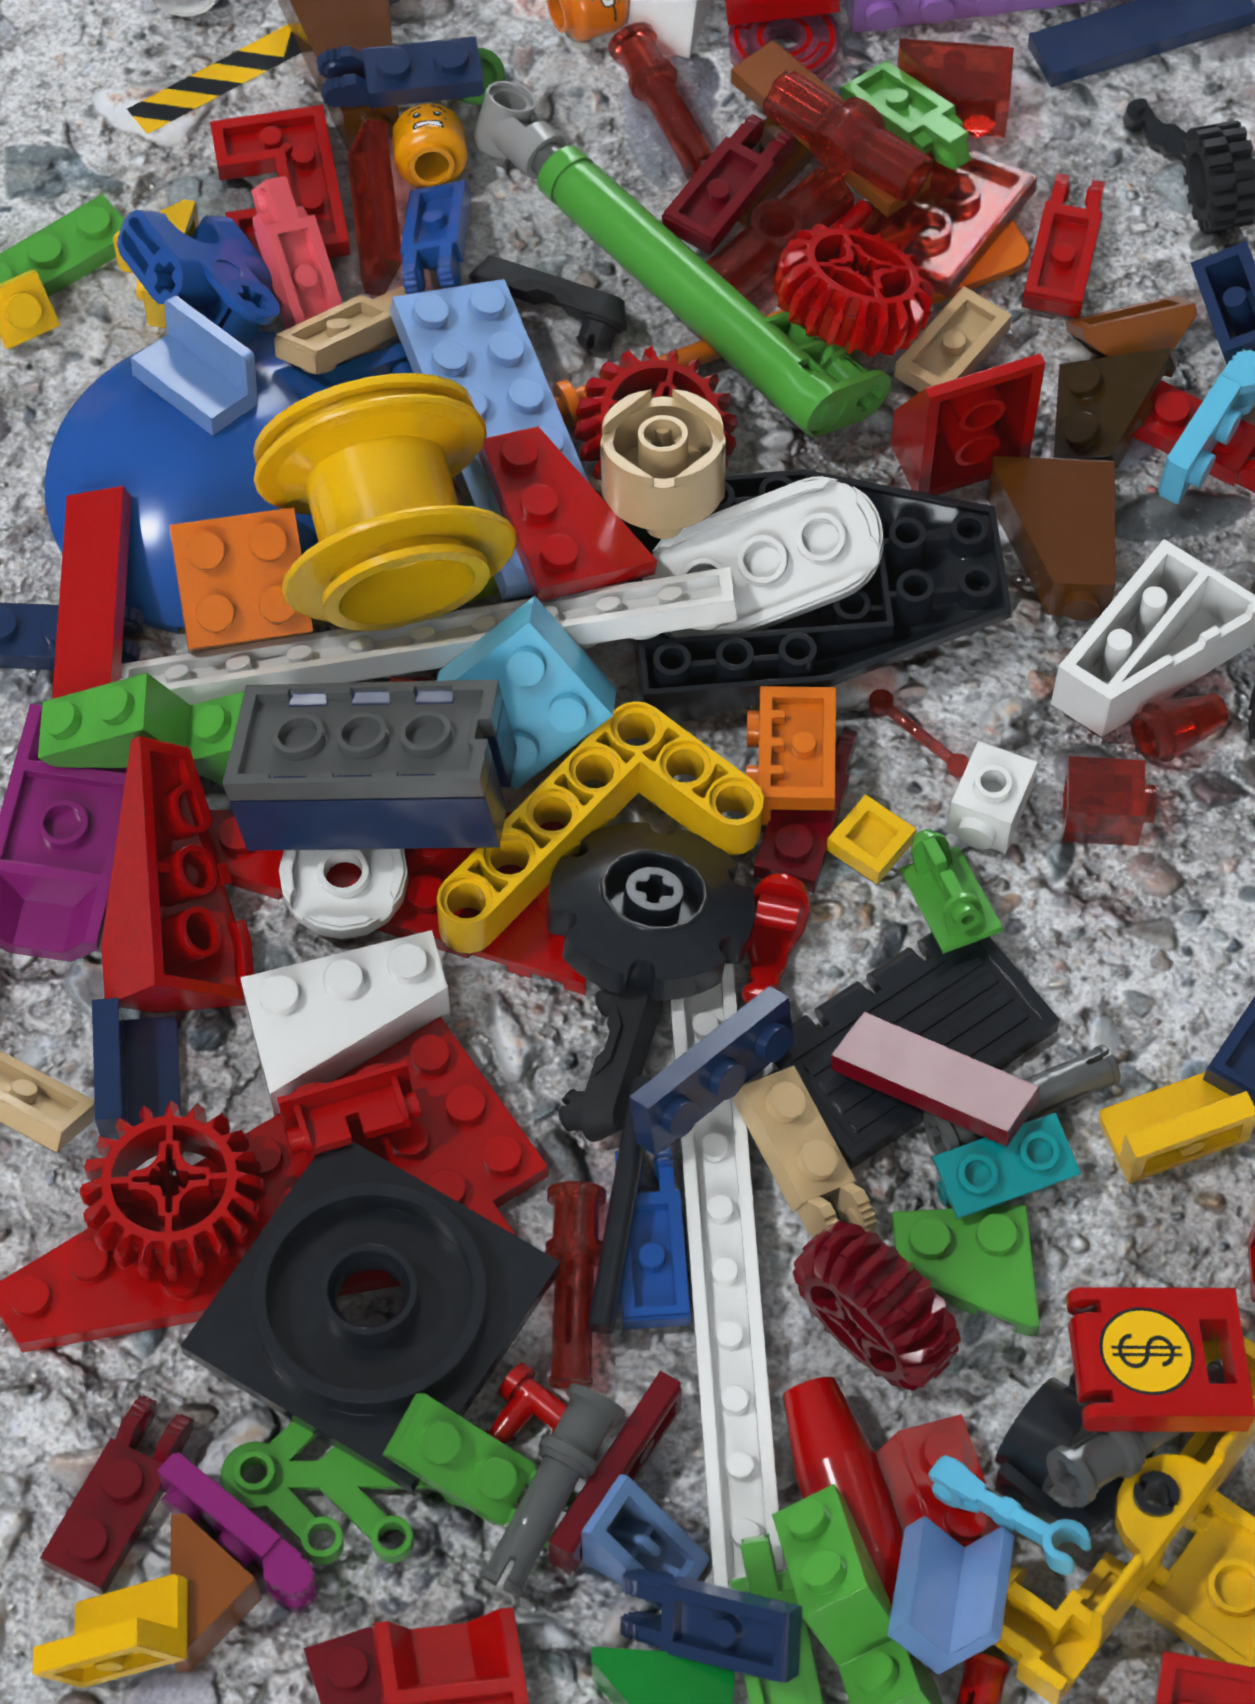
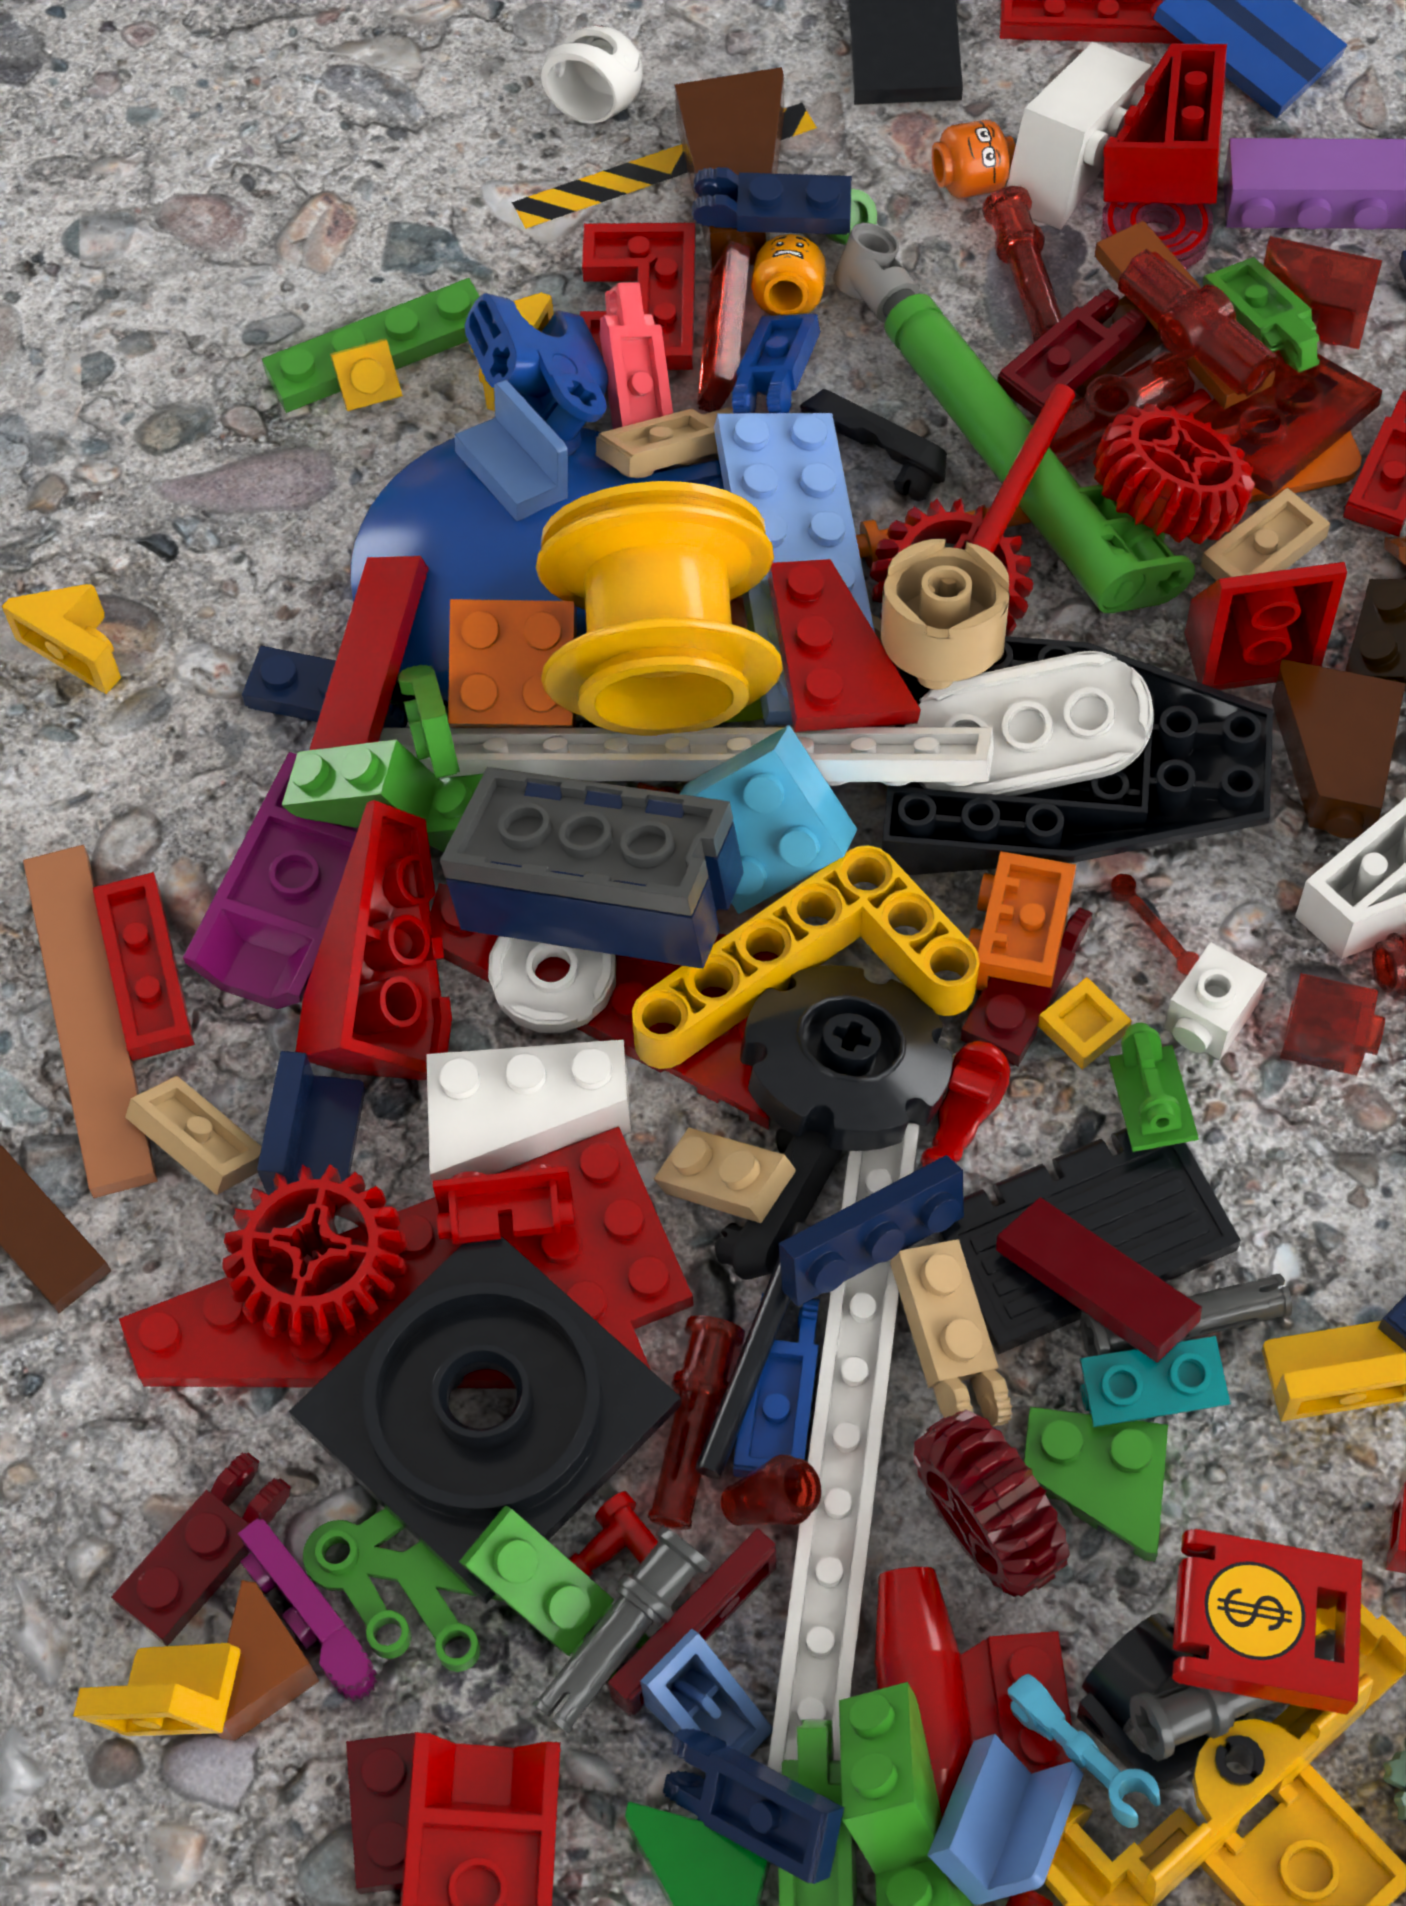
camera: 15 degrees right, 0 degrees up
(170, 647) = (428, 719): none -> bright green hinge
(555, 1044) = (725, 1174): none -> tan plate
(667, 1337) = (773, 1494): none -> clear red cone
(709, 305) = (1024, 467): none -> red bar

